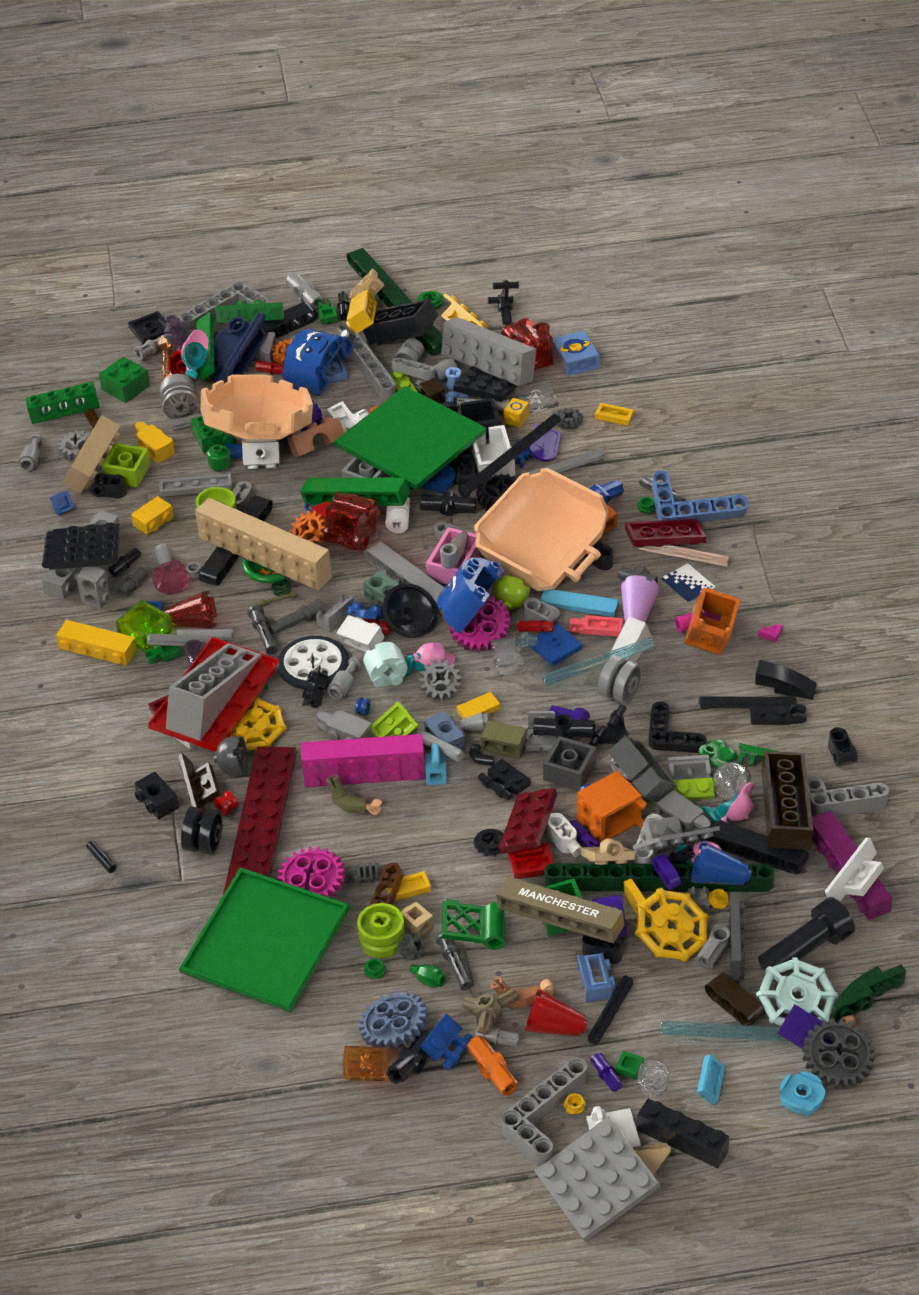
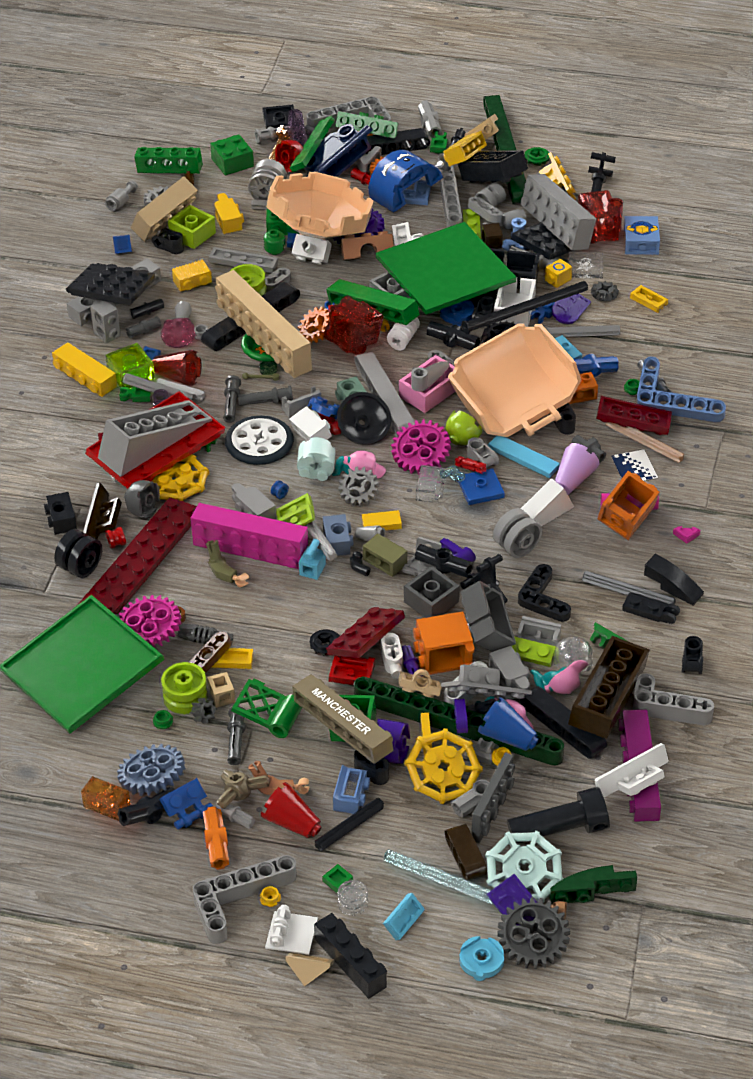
camera: 20 degrees right, 0 degrees up
(195, 352) = (295, 144): teal hair -> none
(311, 694) = (251, 455): black hinge -> none
(343, 679) = (275, 462): light grey piece -> none
(428, 975) = (206, 740): green plant -> none
(468, 591) = (416, 410): blue cylinder -> none
(509, 778) = (374, 591): black plate -> none
(596, 625) = (524, 479): coral hinge -> none
(597, 661) = (499, 511): clear light blue axle -> none
(597, 1179) = (249, 969): light grey plate -> none
(606, 1071) = (313, 877): dark purple axle -> none
(718, 752) = (575, 625): green plate -> none

